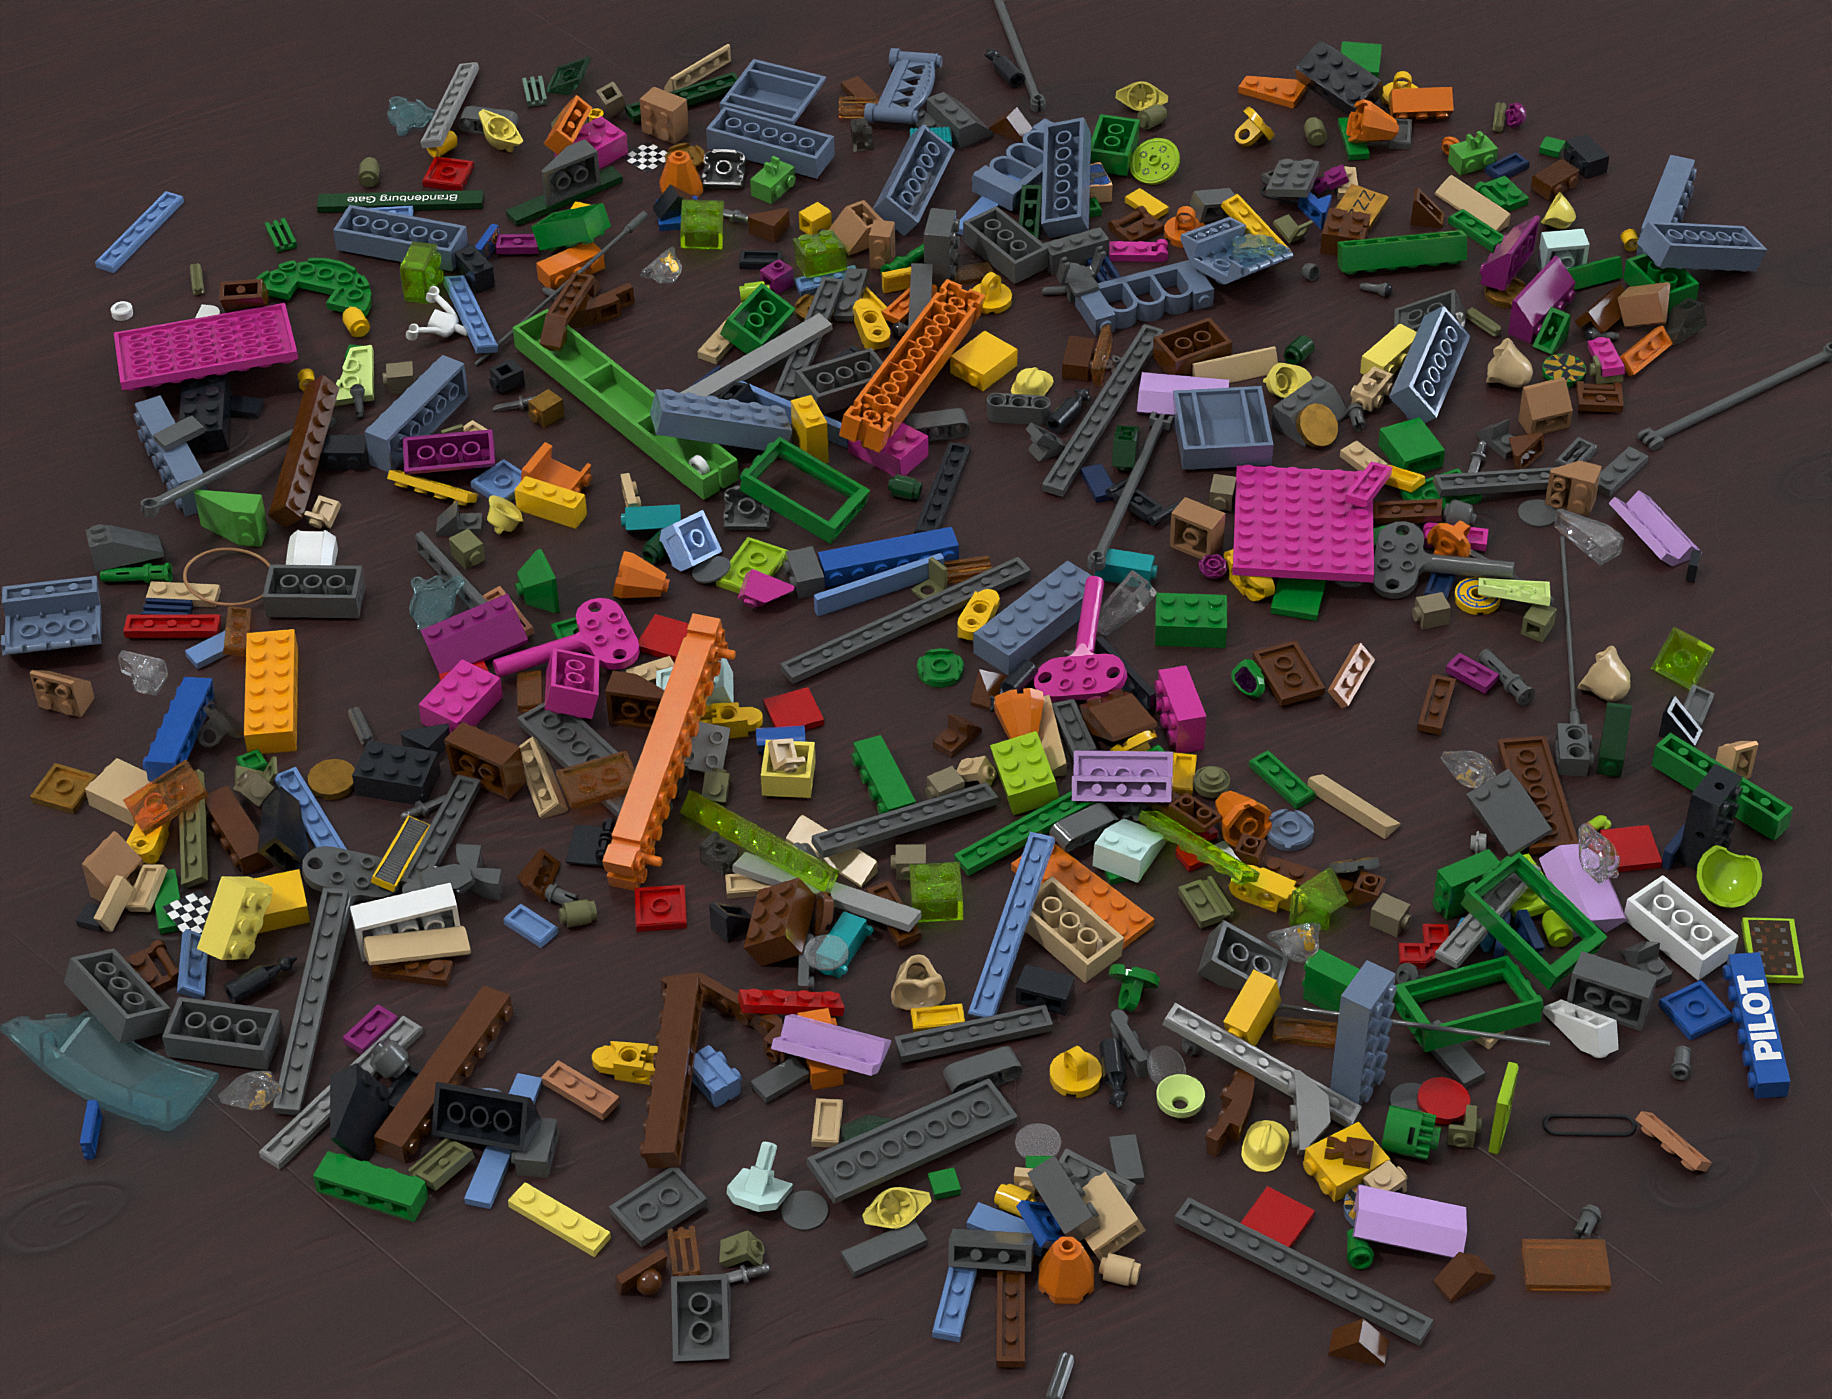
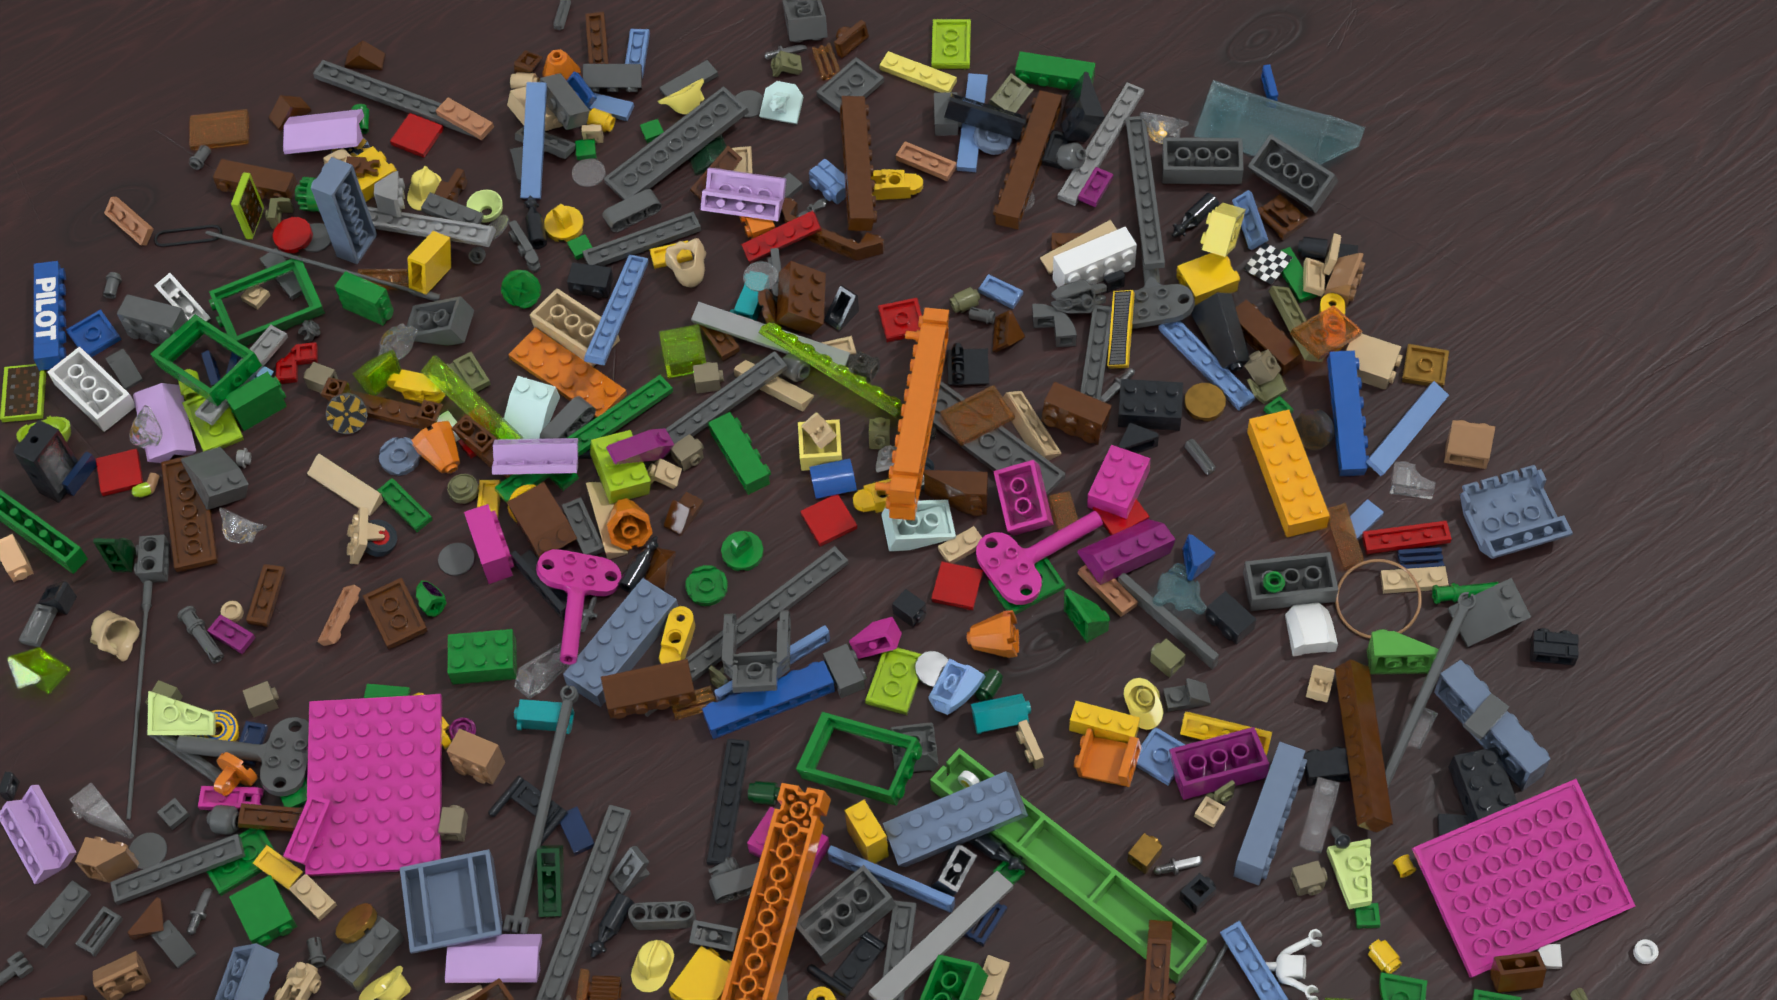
camera: 175 degrees right, 15 degrees up
(73, 517) = (1554, 647): none -> black brick
(119, 716) = (1407, 428): none -> medium blue tile
(130, 921) = (1313, 247): none -> black brick
(241, 478) = (1423, 728): none -> clear tile
(333, 569) = (1273, 576): none -> green plate
(362, 418) = (1319, 815): none -> clear slope
(389, 575) = (1230, 618): none -> black brick
(404, 622) = (1196, 556): none -> blue slope
(501, 1257) = (951, 43): none -> lime tile
(728, 613) = (909, 608): none -> black brick
(745, 1052) = (821, 203): none -> dark grey piece
(864, 1099) = (726, 160): none -> reddish brown plate
(894, 549) = (756, 669): none -> dark grey plate
(895, 692) = (742, 551): none -> green tile
(954, 435) = (728, 865): none -> dark grey pin
(967, 383) = (714, 936): none -> dark grey brick
(991, 764) = (641, 447): none -> magenta slope
(1011, 558) = (648, 689): none -> reddish brown slope
(1055, 1040) = (578, 245): none -> green tile
(1107, 1152) = (533, 140): none -> medium blue tile
(1115, 1292) = (527, 62): none -> reddish brown slope
(1207, 1215) = (464, 118): none -> nougat plate
(1222, 724) = (456, 559): none -> dark grey piece
(1223, 1076) = (447, 209): none -> dark grey plate
(1320, 736) = (373, 537): none -> tan plate
(1474, 699) = (232, 611): none -> tan tile
(1502, 1173) = (268, 182): none -> reddish brown brick
(1513, 530) = (173, 813): none -> dark grey plate

